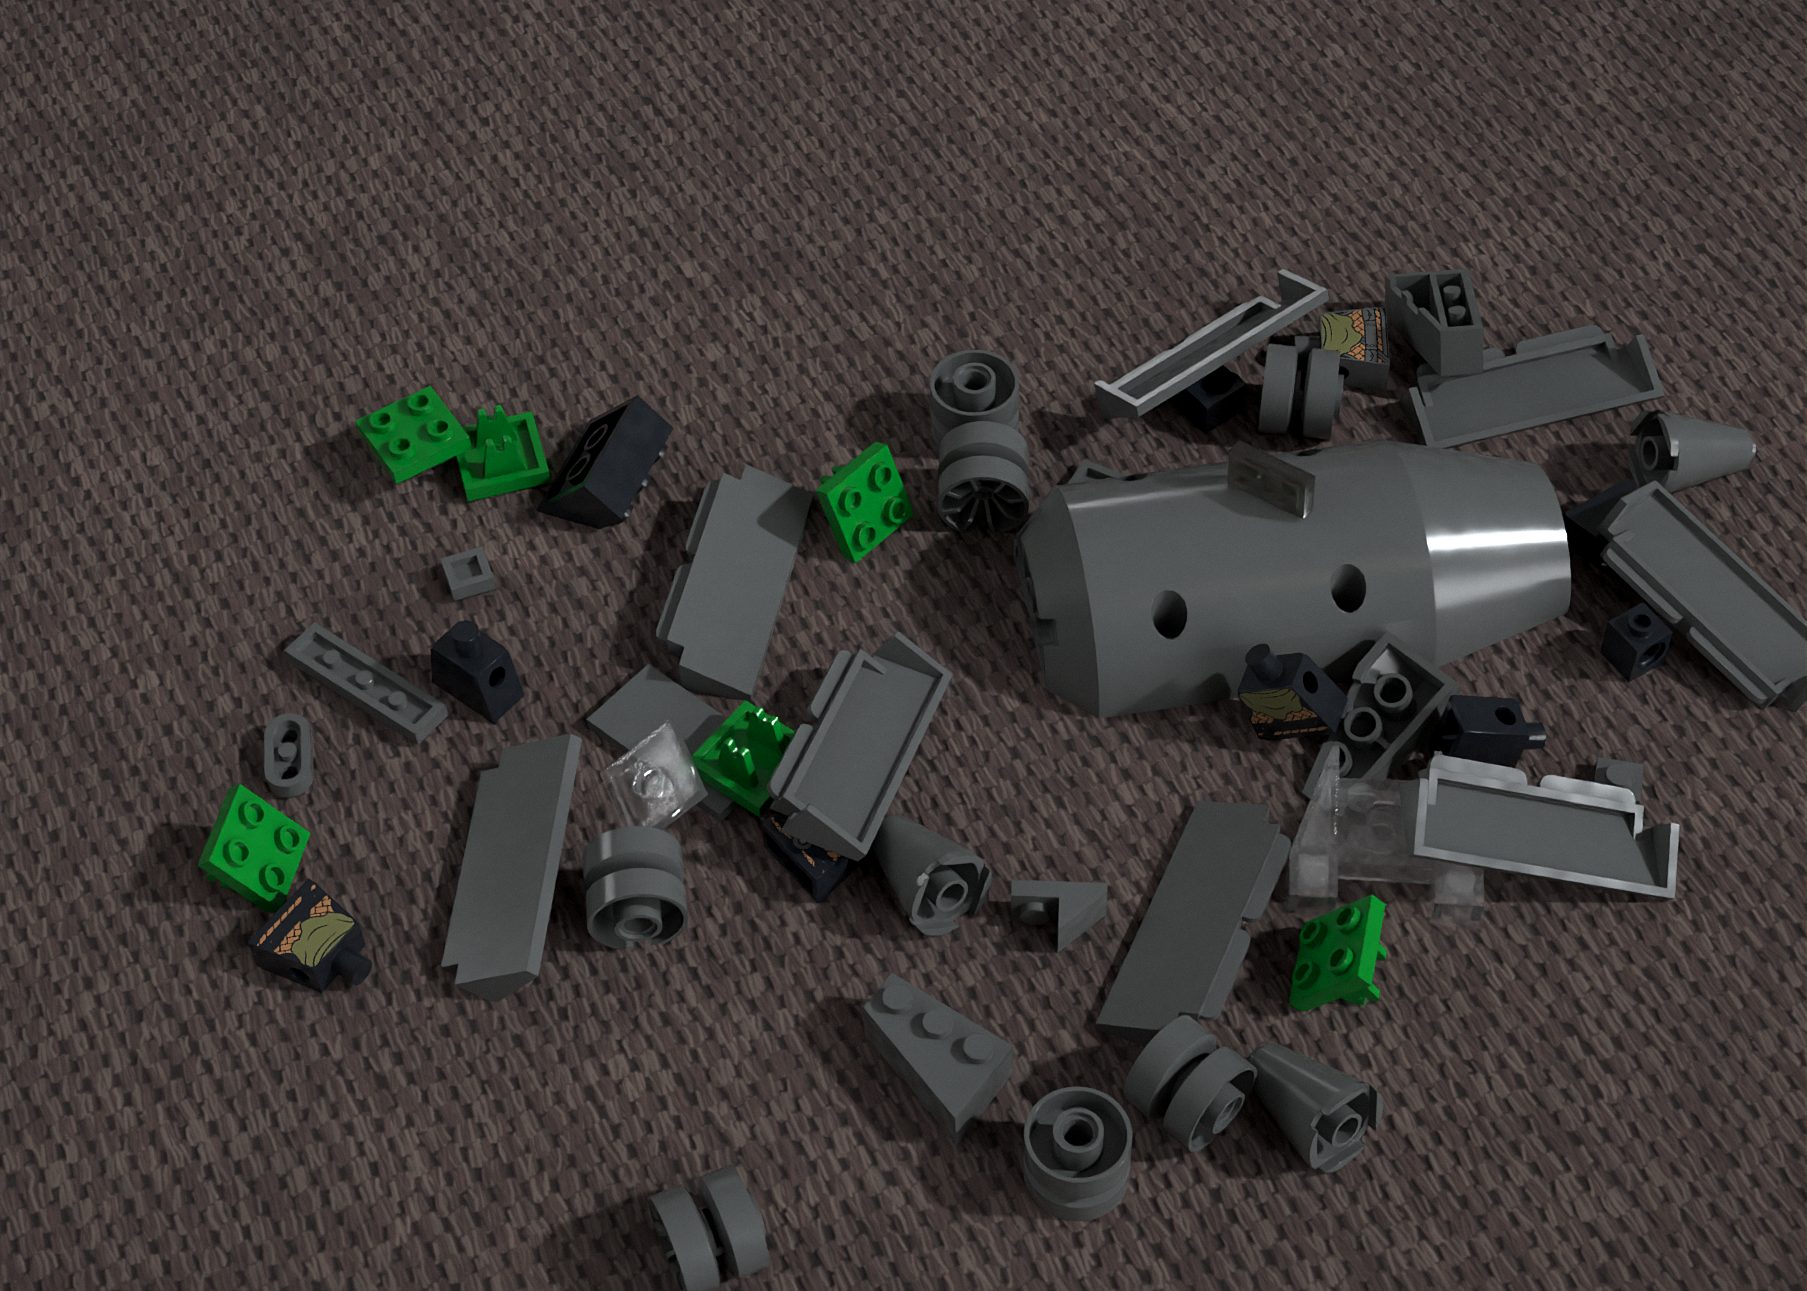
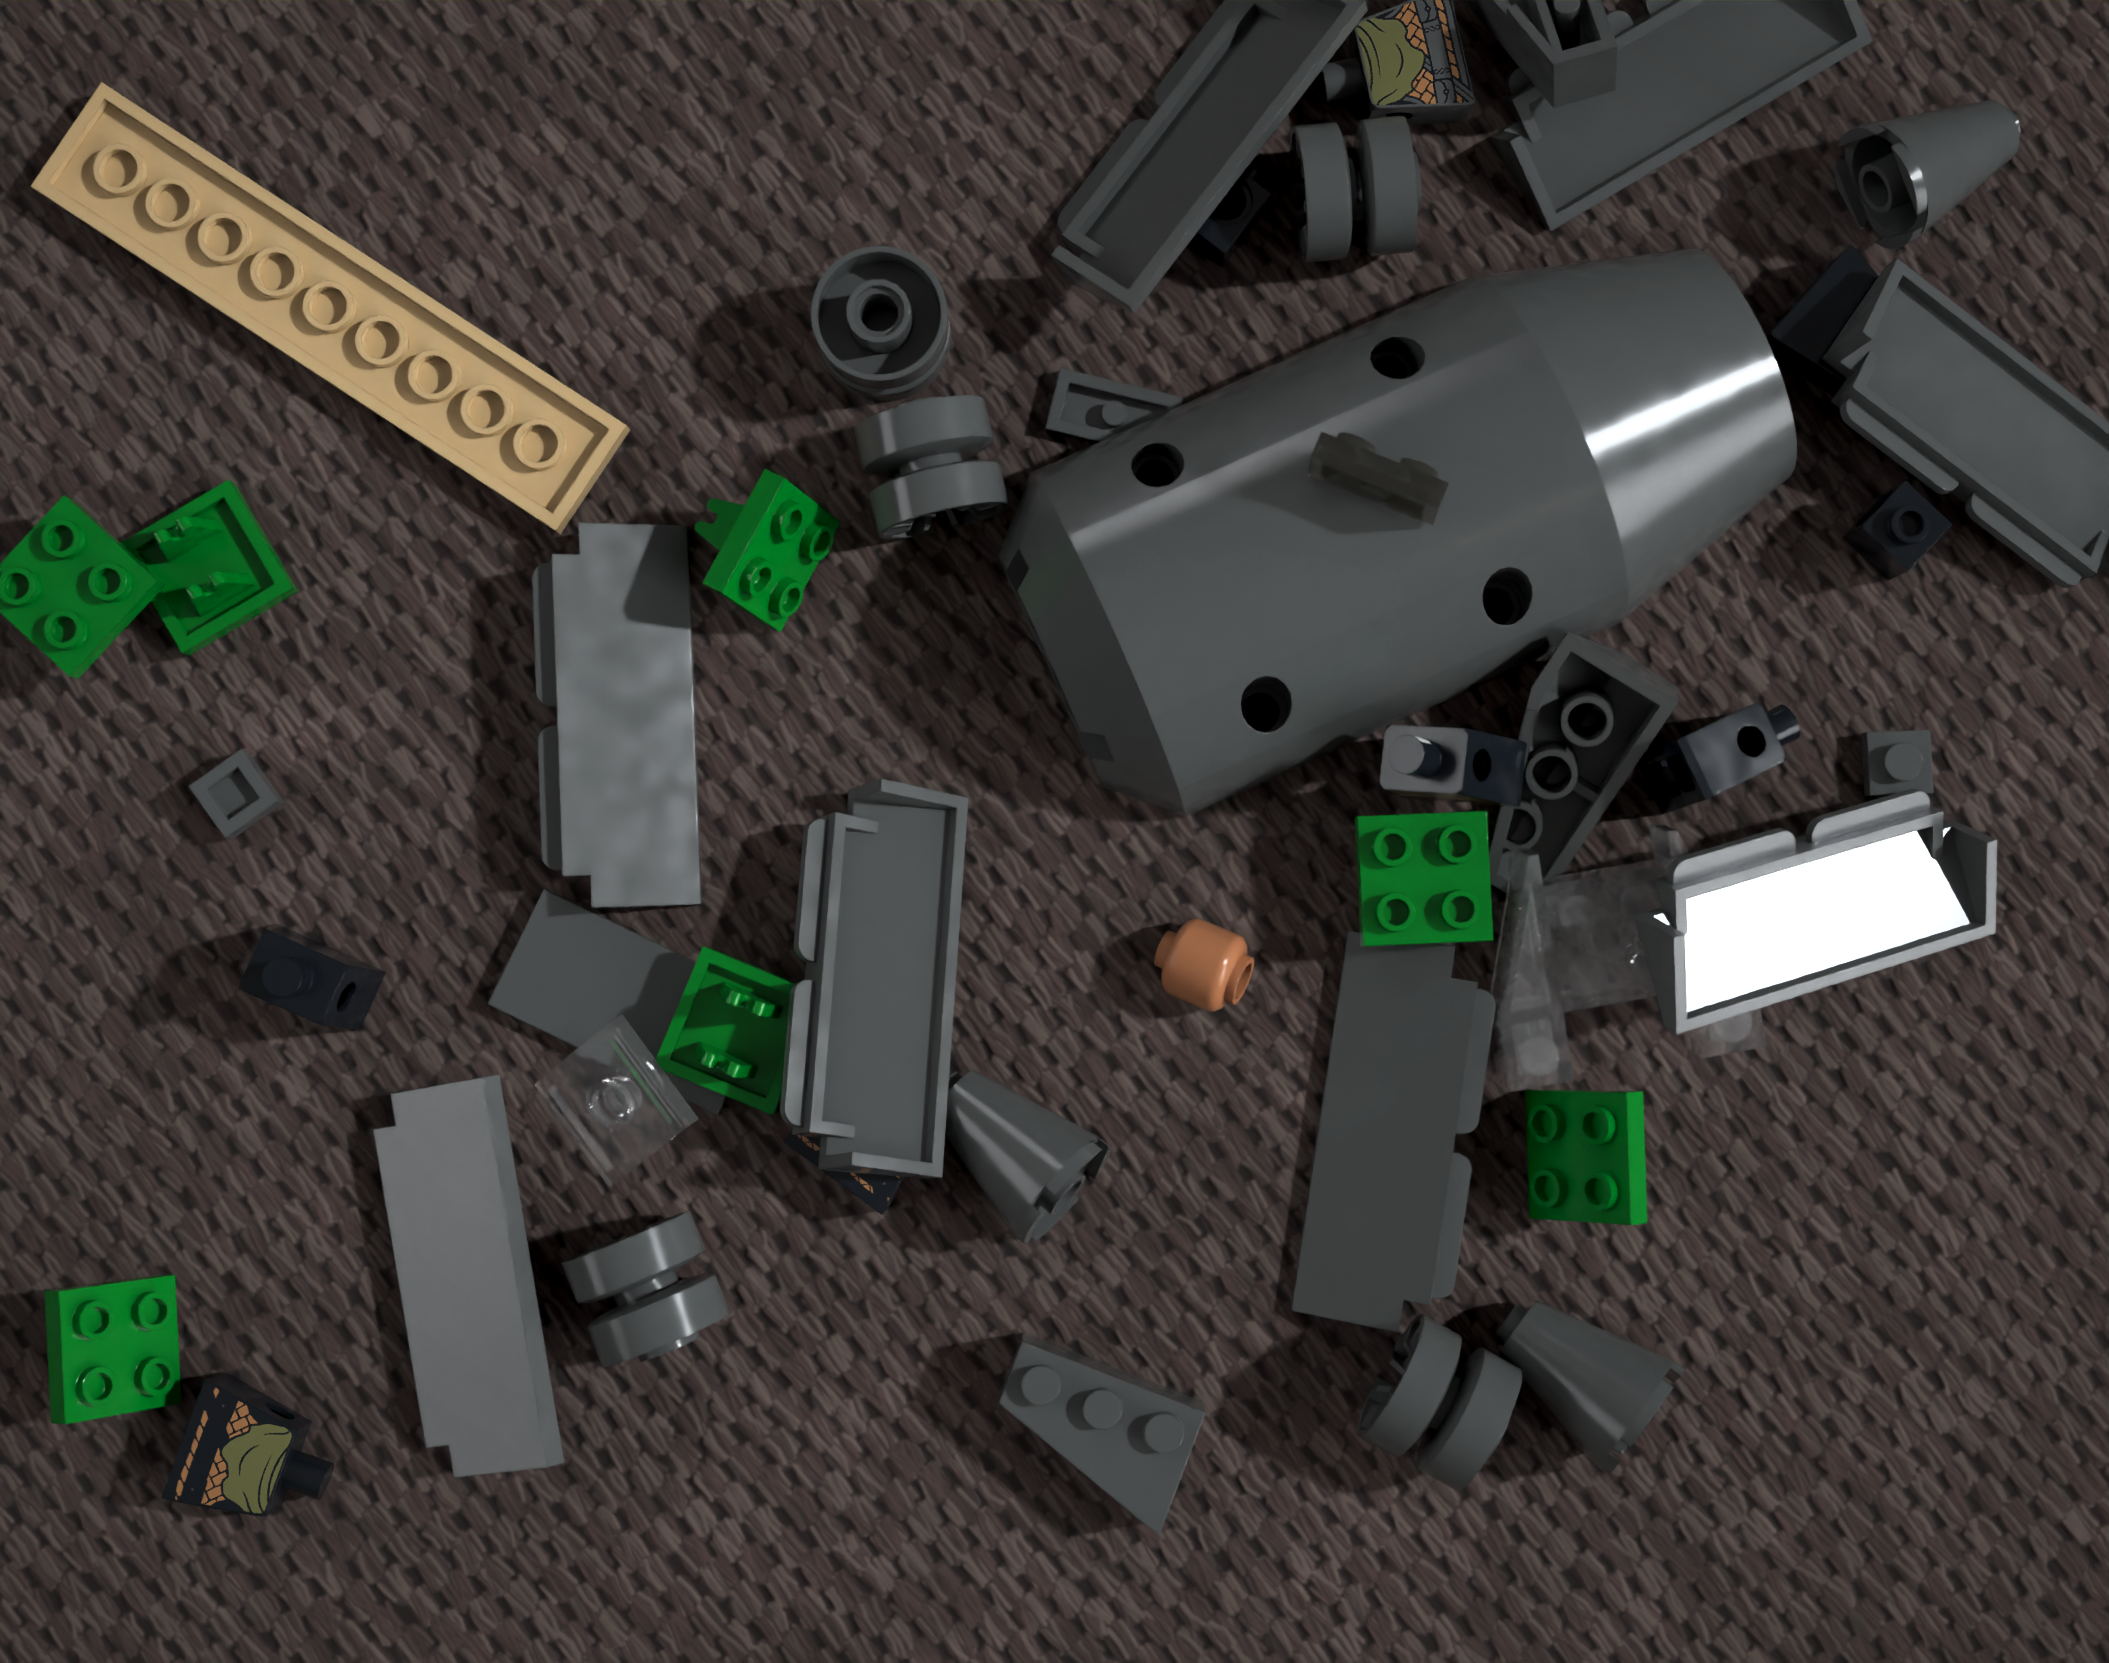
camera: 15 degrees left, 35 degrees up
(288, 758) = (91, 1167): dark grey plate -> none
(366, 683) = (159, 1018): dark grey plate -> none
(608, 466) = (372, 554): black slope -> none
(633, 348) = (331, 308): none -> tan plate
(1070, 903) = (1226, 1152): dark grey slope -> none
(1077, 1153) = (1320, 1535): dark grey wheel -> none
(1089, 793) = (1204, 965): none -> nougat head
(1256, 760) = (1423, 878): none -> green plate

